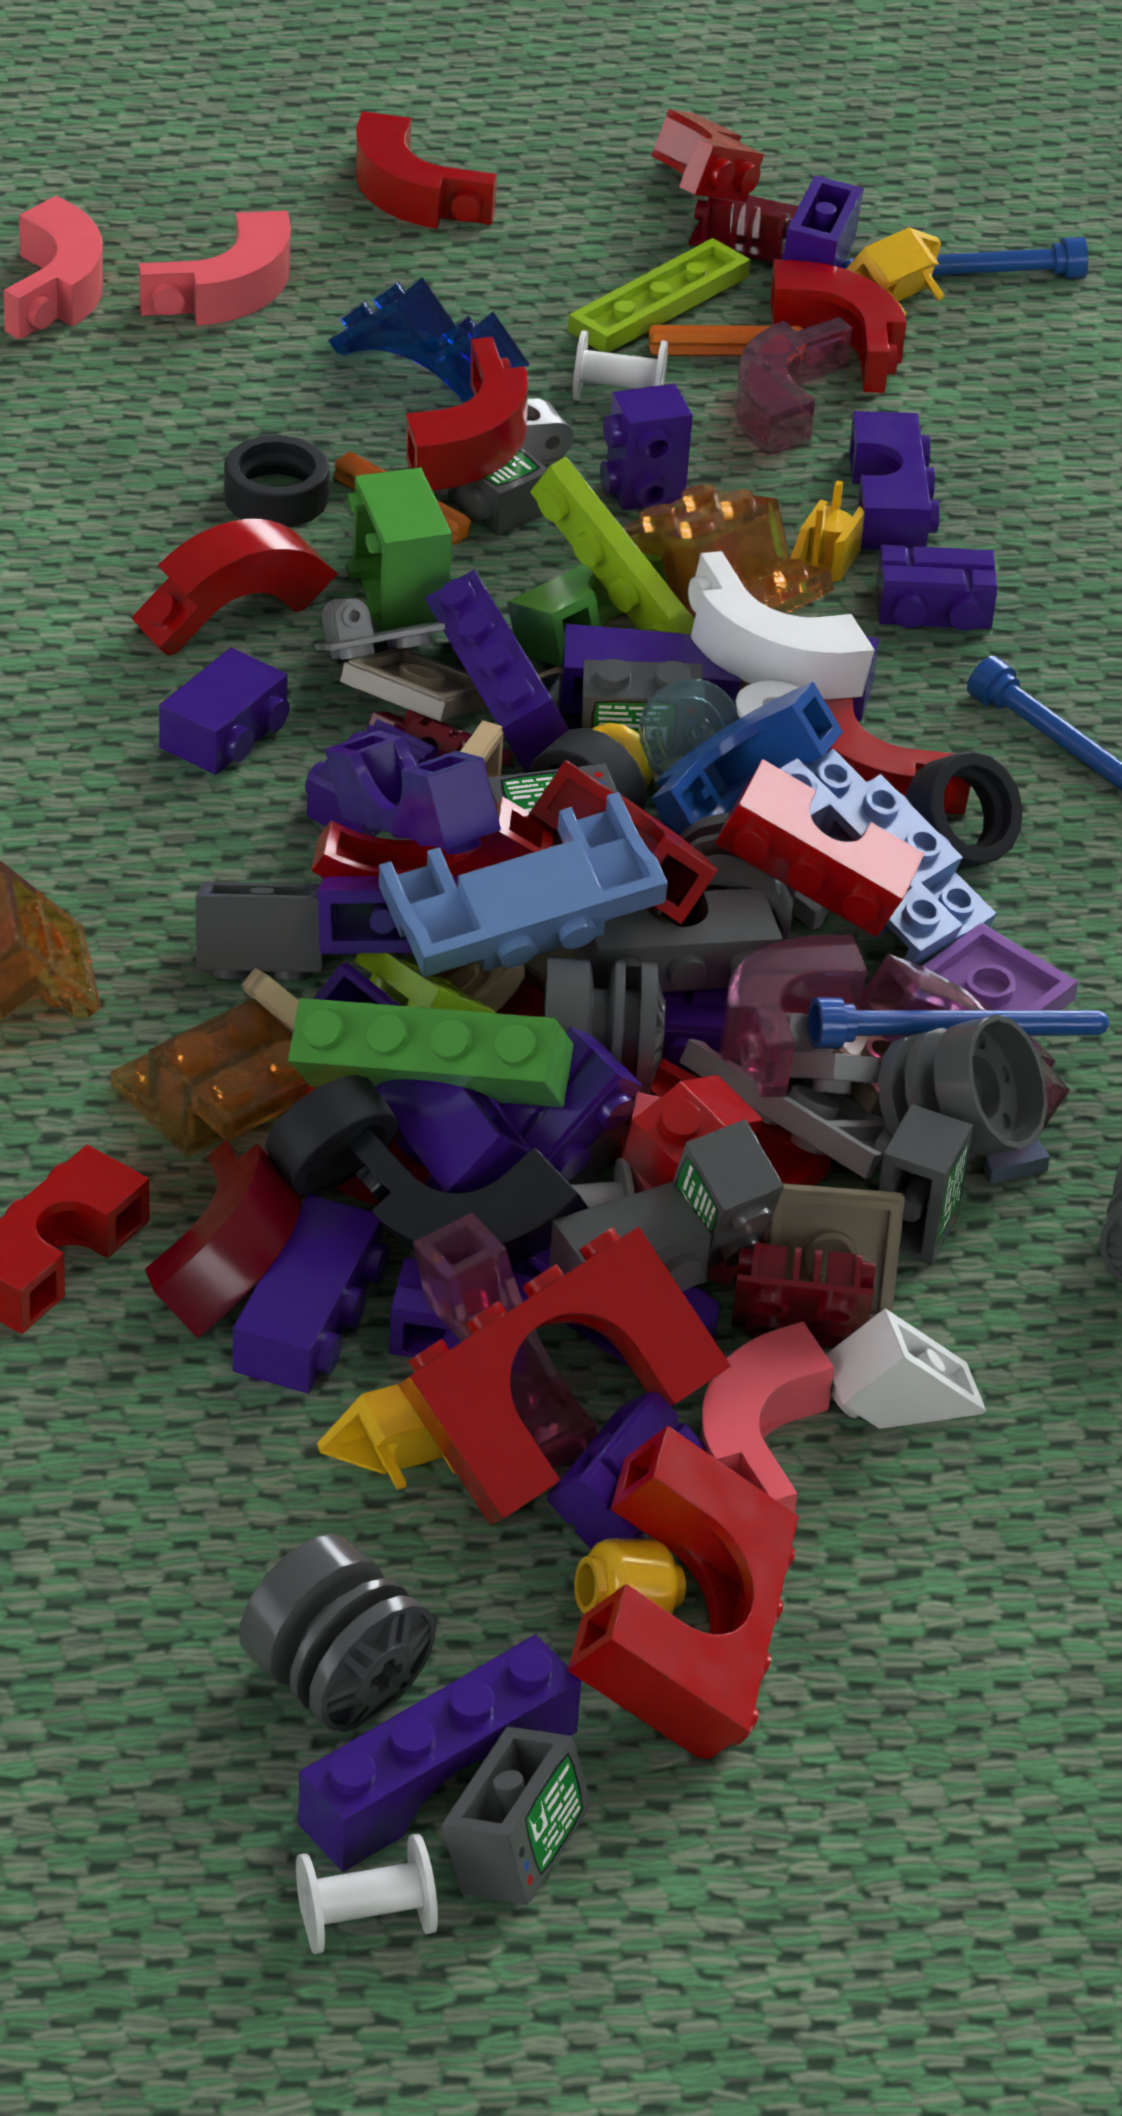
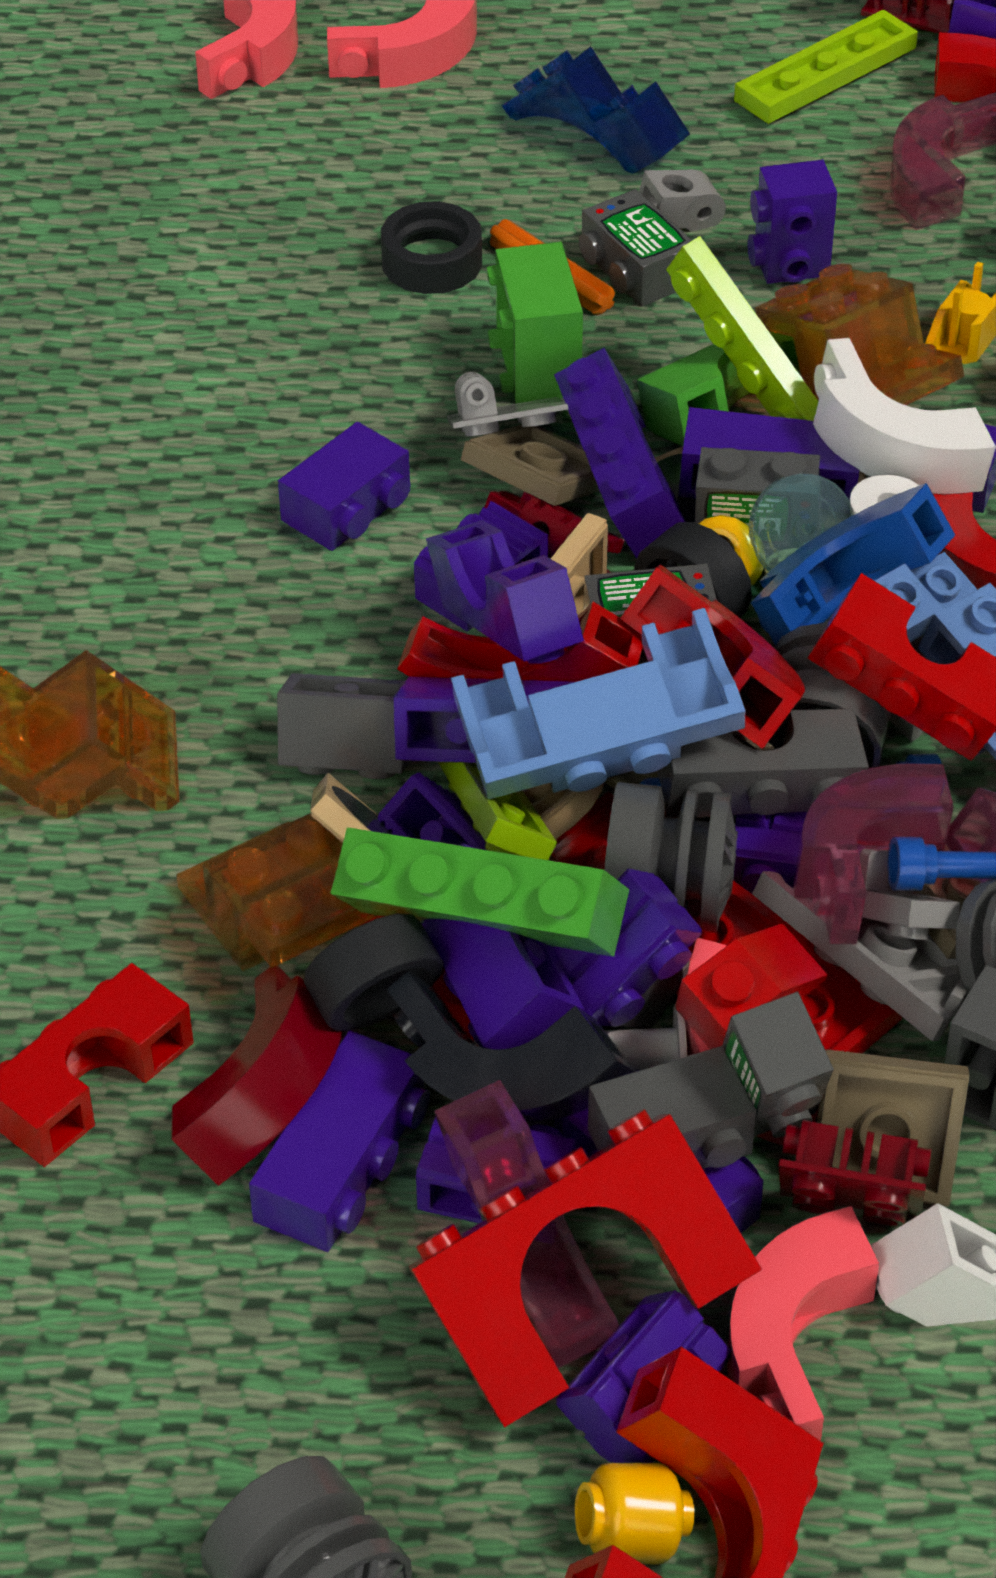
camera: 10 degrees right, 5 degrees up
(225, 565) = (367, 334): red arch -> none
(381, 1435) = (390, 1312): yellow piece -> none
(476, 436) = (626, 208): red arch -> none
(617, 369) = (775, 139): white piece -> none
(703, 339) = (863, 111): orange axle -> none

